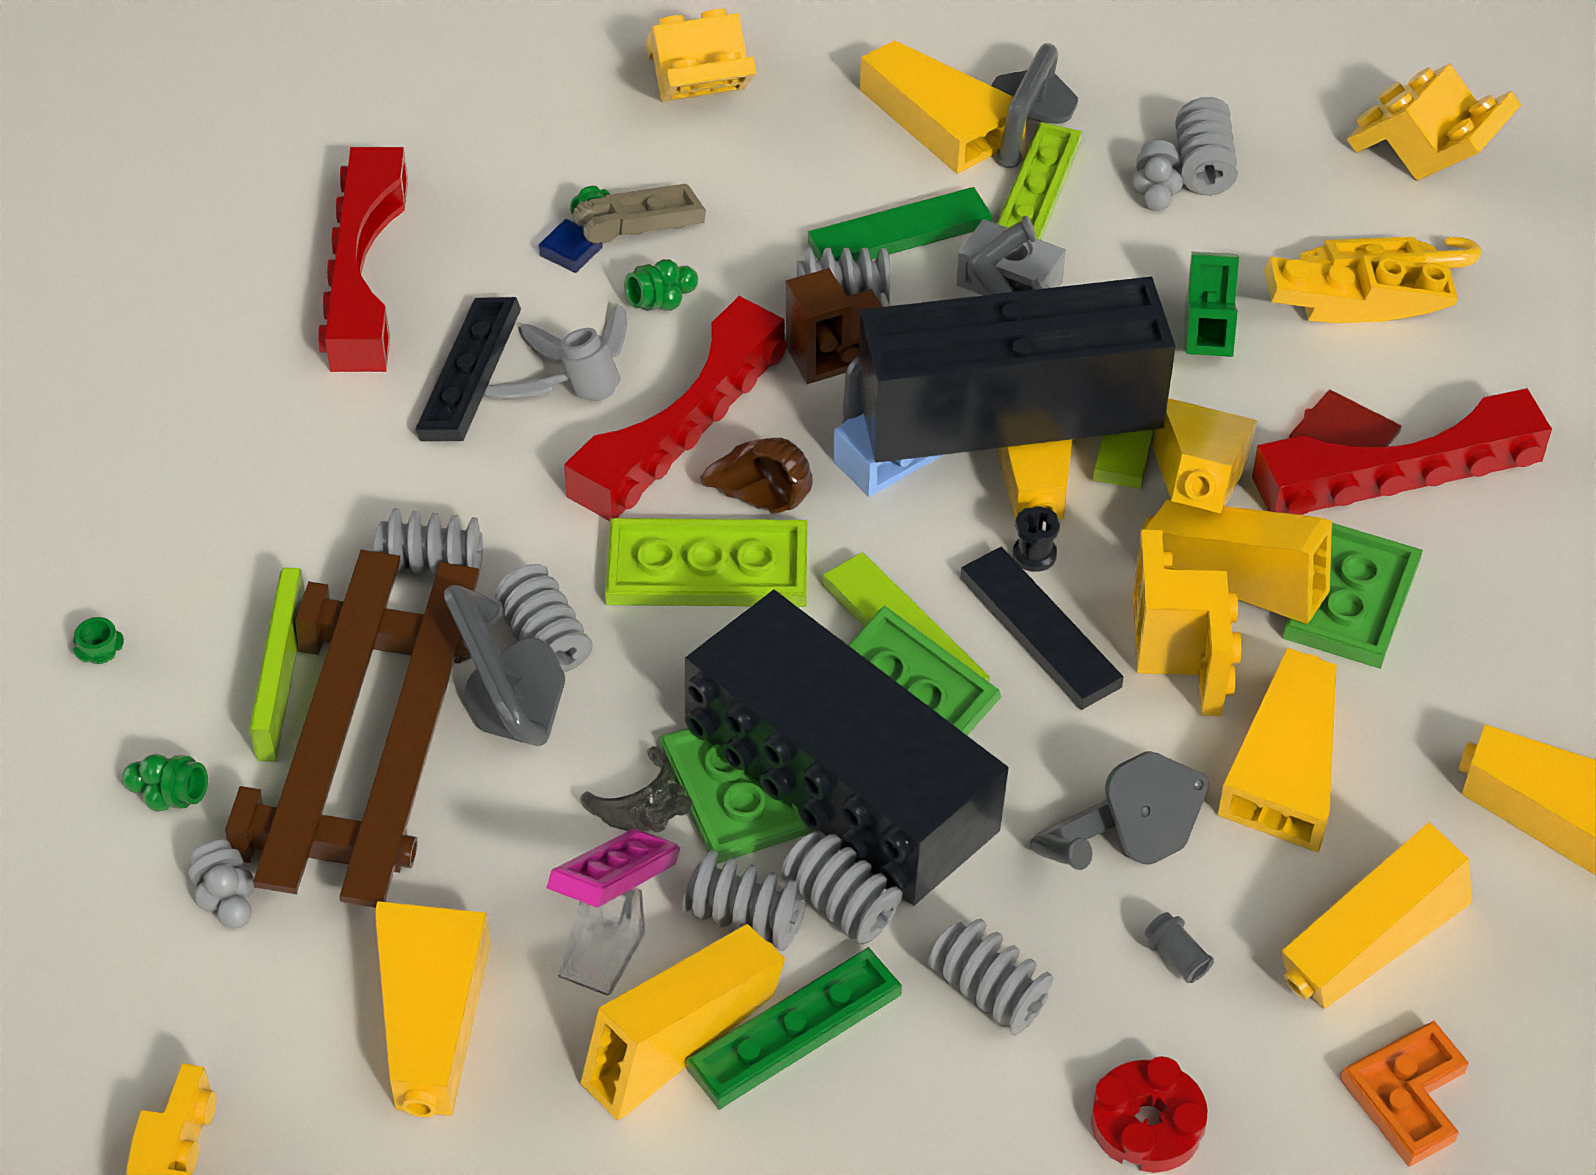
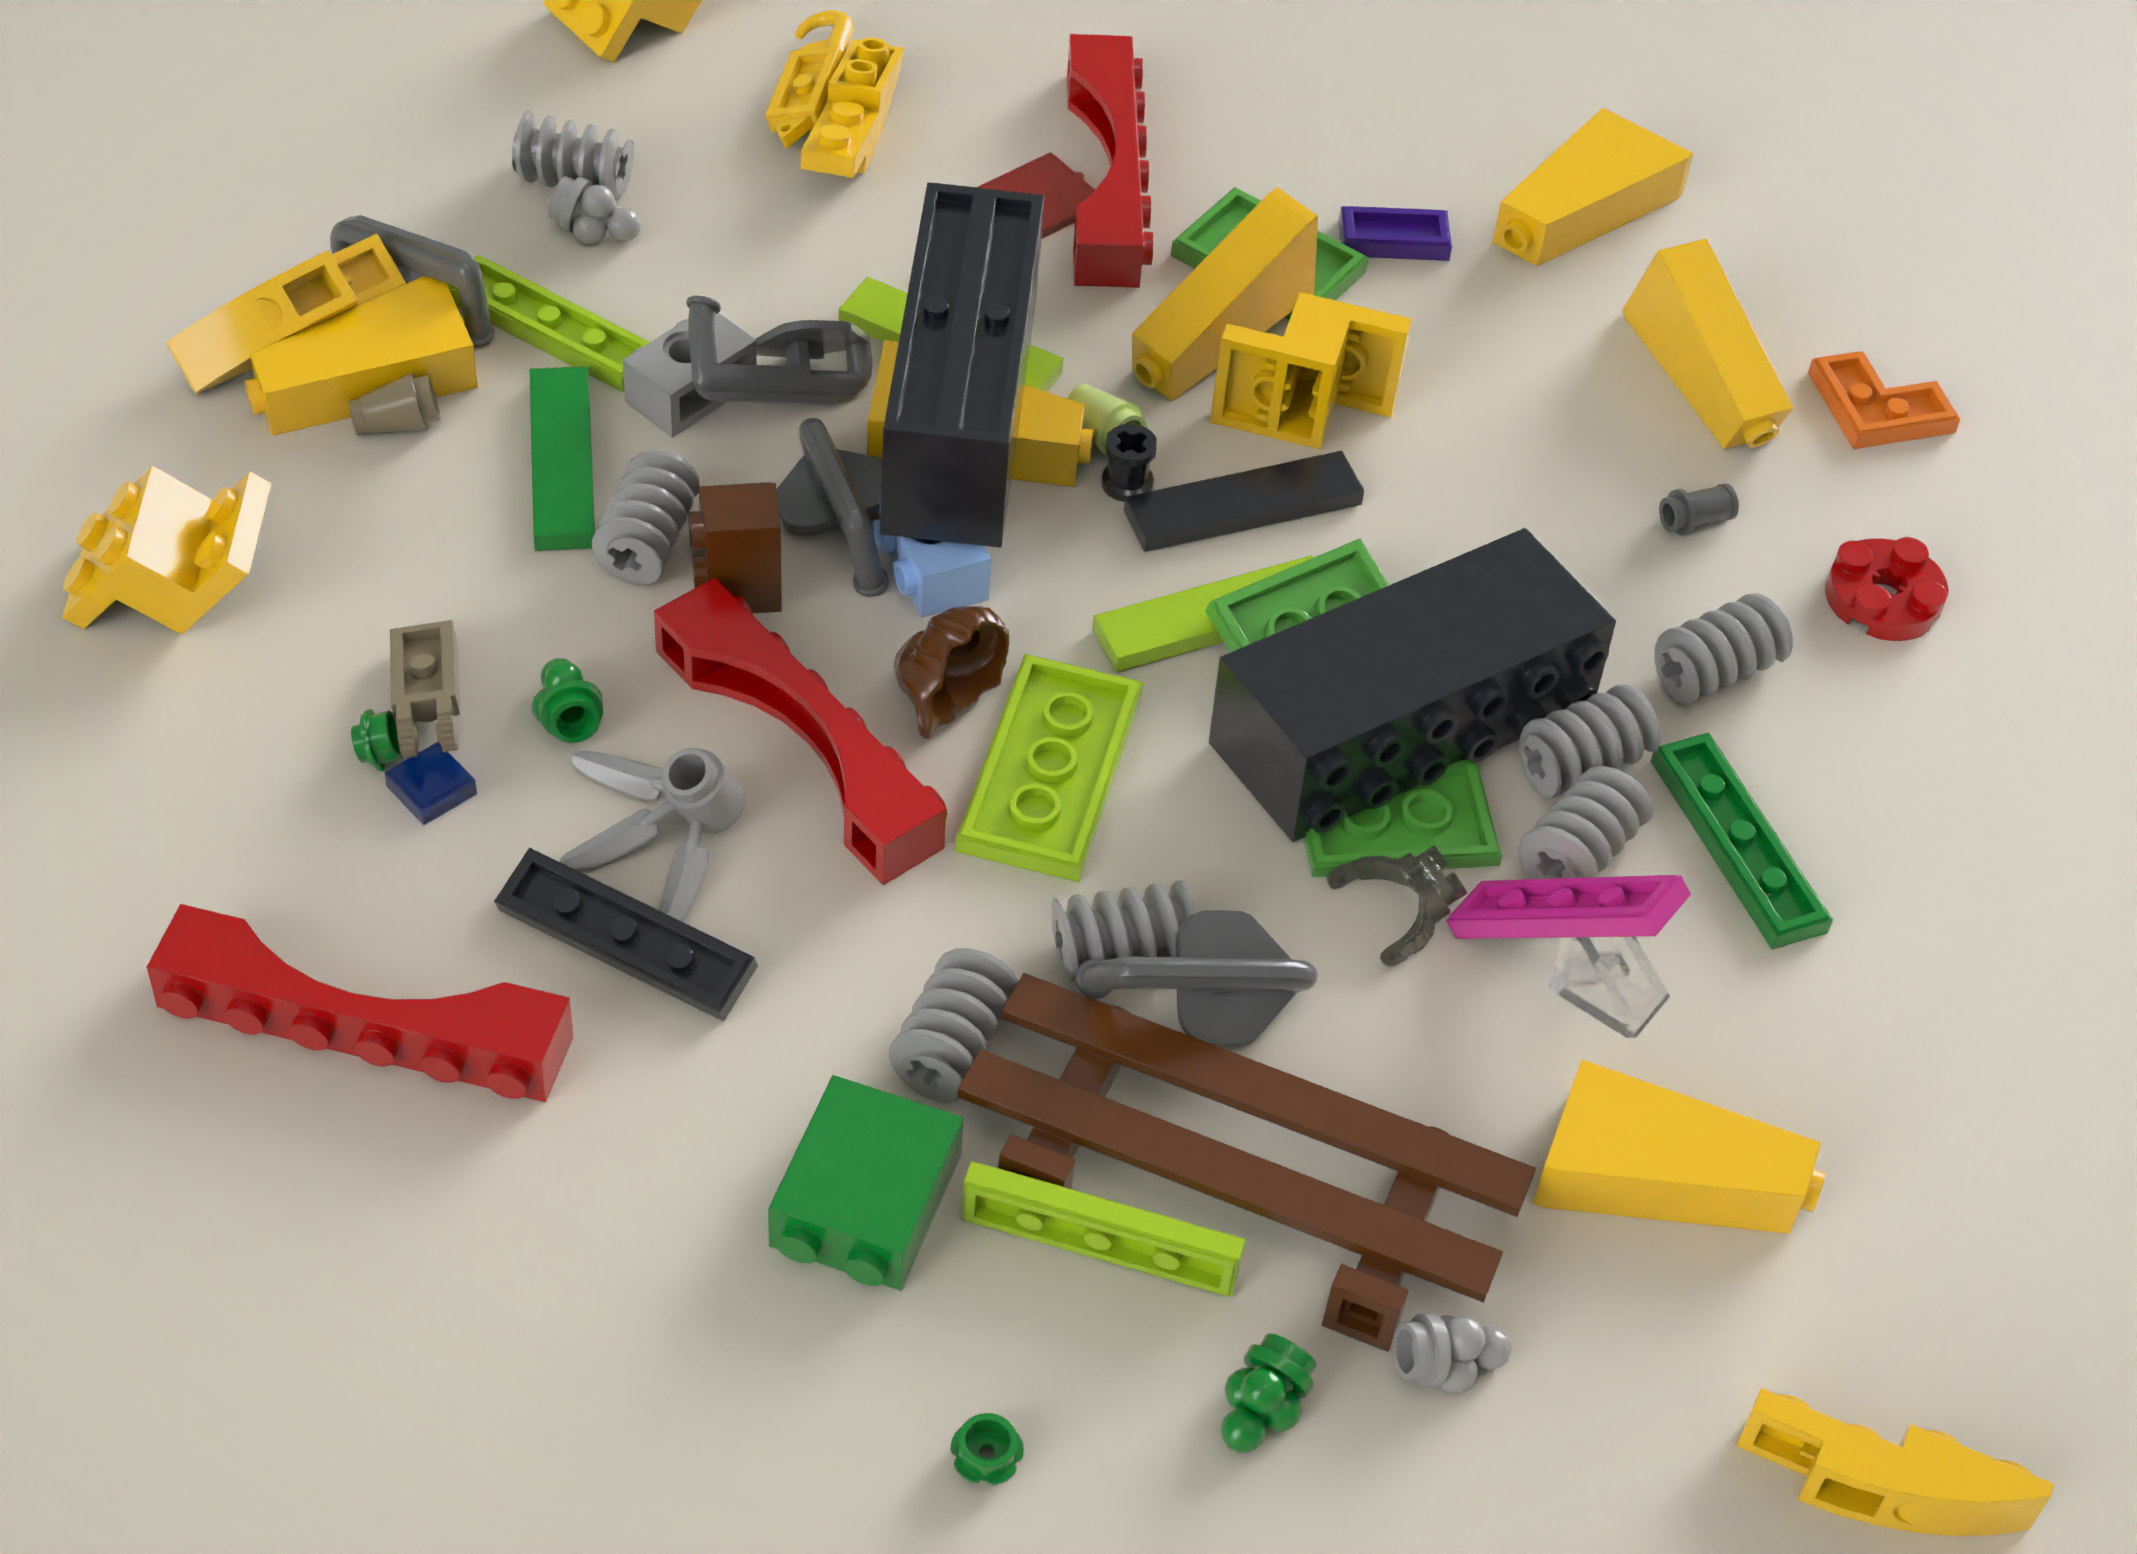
camera: 80 degrees left, 0 degrees up
(286, 525) = (865, 1183): none -> green brick
(659, 1024) = (1748, 922): yellow slope -> none
(904, 135) = (396, 407): none -> dark tan cone
(956, 46) = (280, 307): none -> yellow slope
(1084, 517) = (1105, 412): none -> yellowish green cone
(1147, 800) = (1539, 473): dark grey piece -> none
(1202, 453) = (1113, 277): yellow slope -> none
(1211, 305) = (844, 236): green brick -> none
(1286, 758) = (1487, 358): yellow slope -> none
(1436, 677) = (1396, 232): none -> dark purple tile

